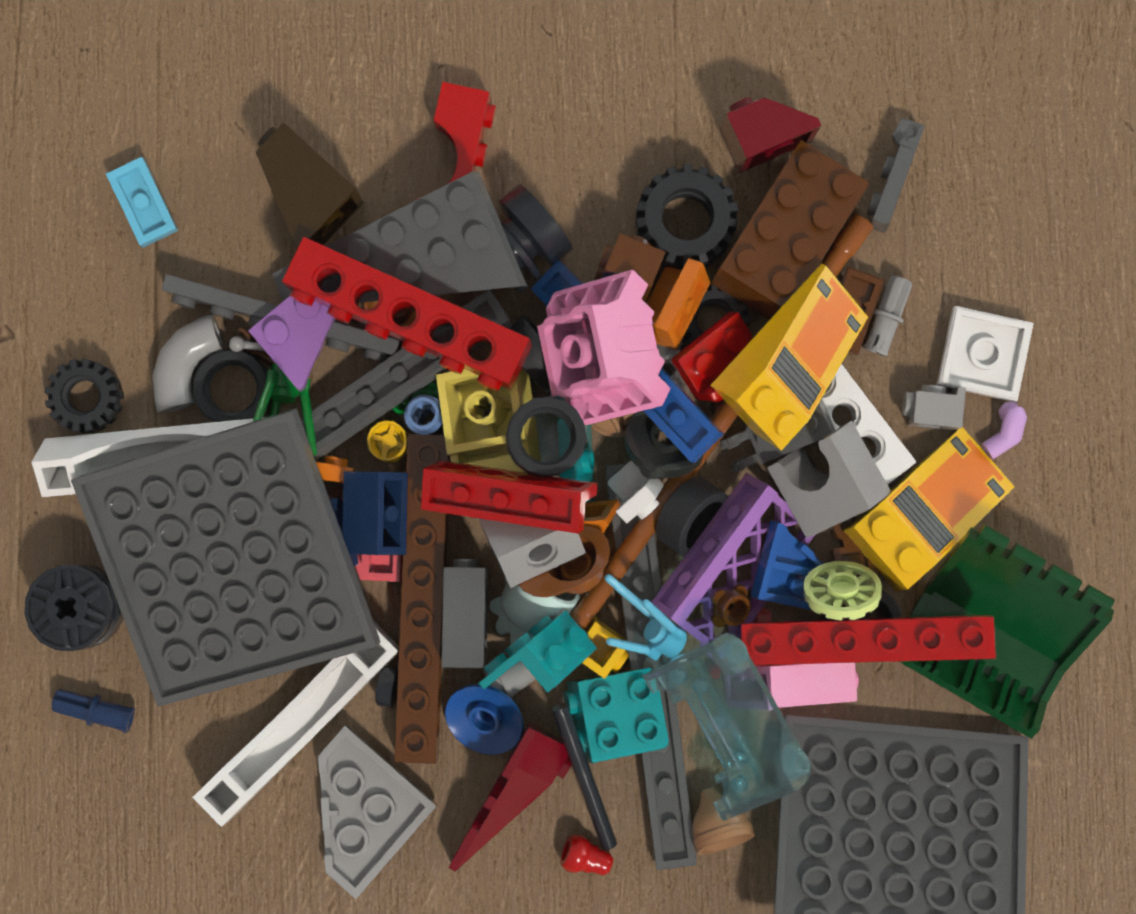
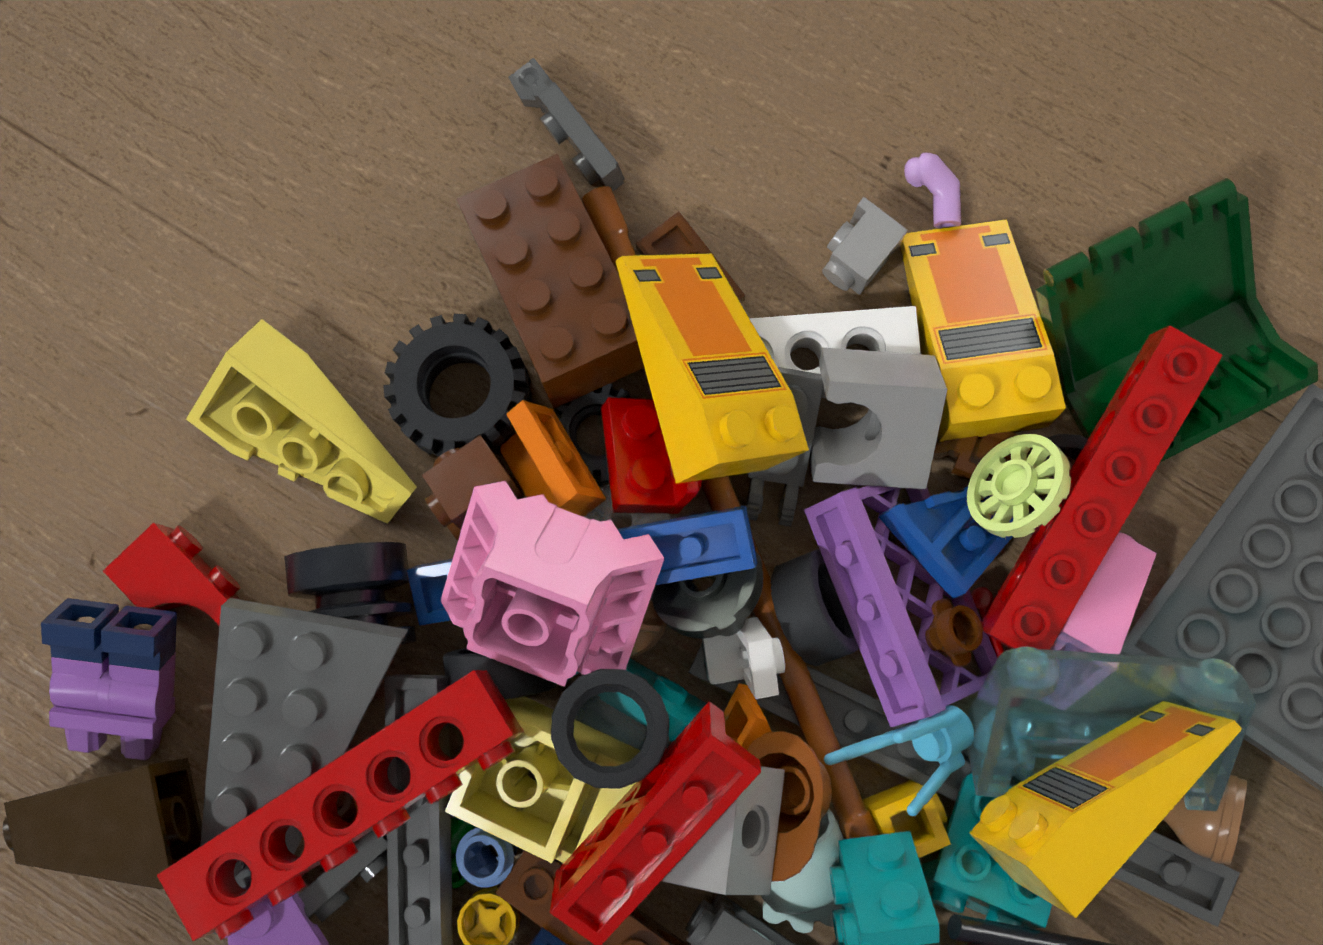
camera: 55 degrees left, 5 degrees down
(386, 128) = (111, 674): none -> hips
(604, 125) = (284, 409): none -> light yellow wedge
(667, 736) = (1092, 810): none -> yellow slope
(765, 131) = (418, 233): dark red slope -> none
(888, 315) = (722, 234): light grey axle -> none
(985, 353) = (834, 156): white plate -> none

